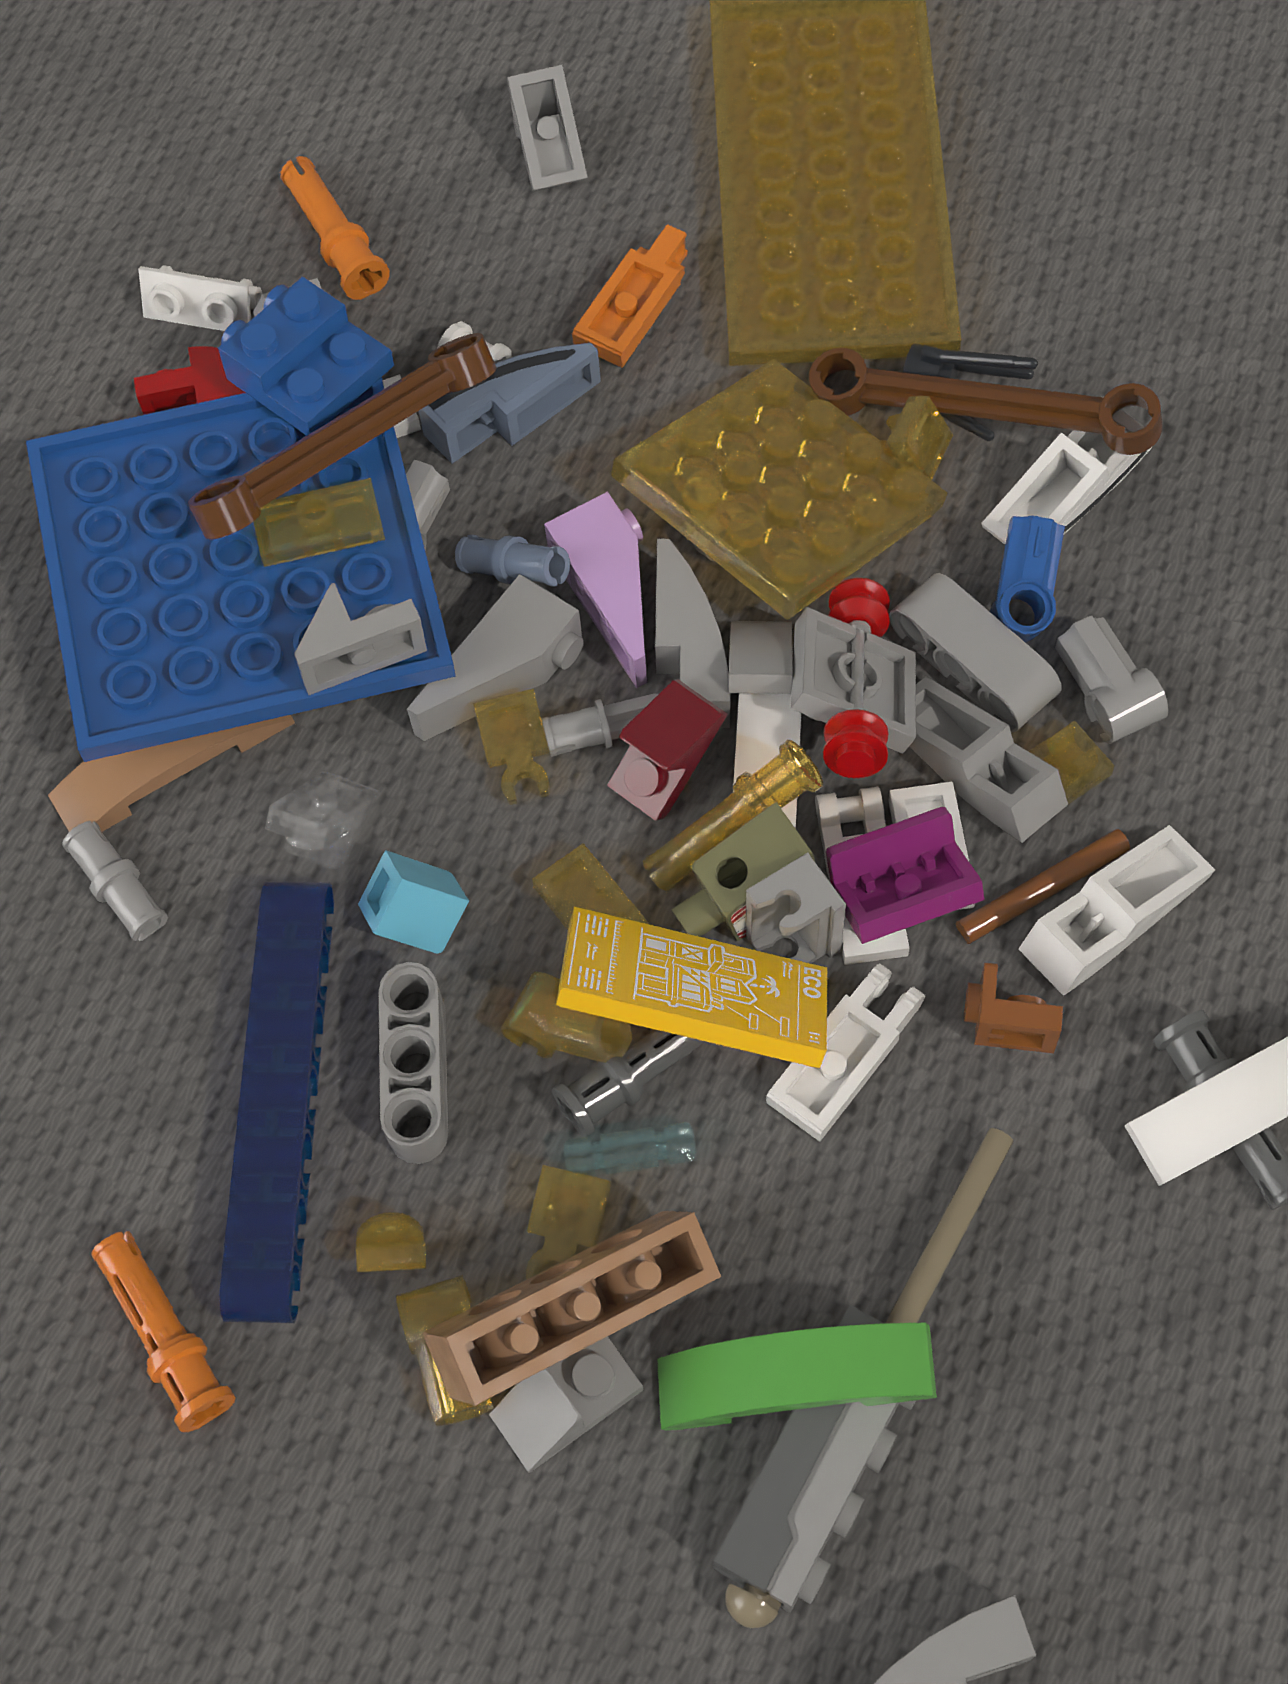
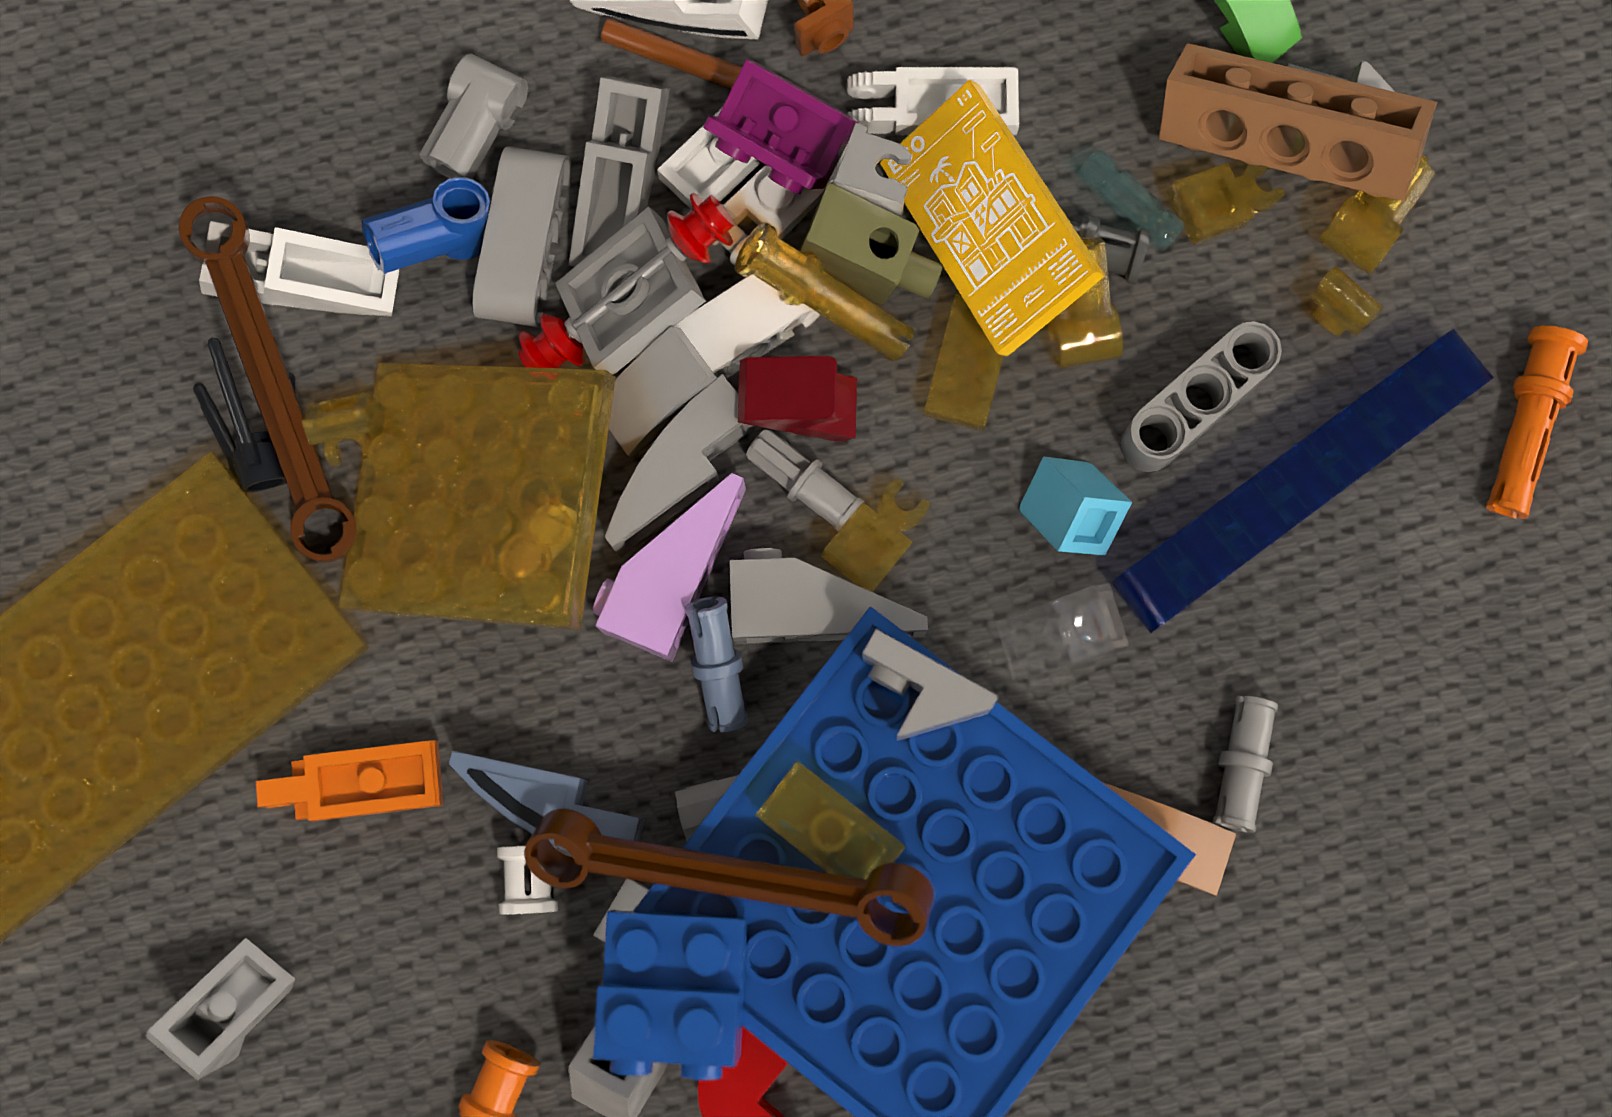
camera: 130 degrees left, 15 degrees up
(1076, 758) = (566, 107): clear yellow tile -> none

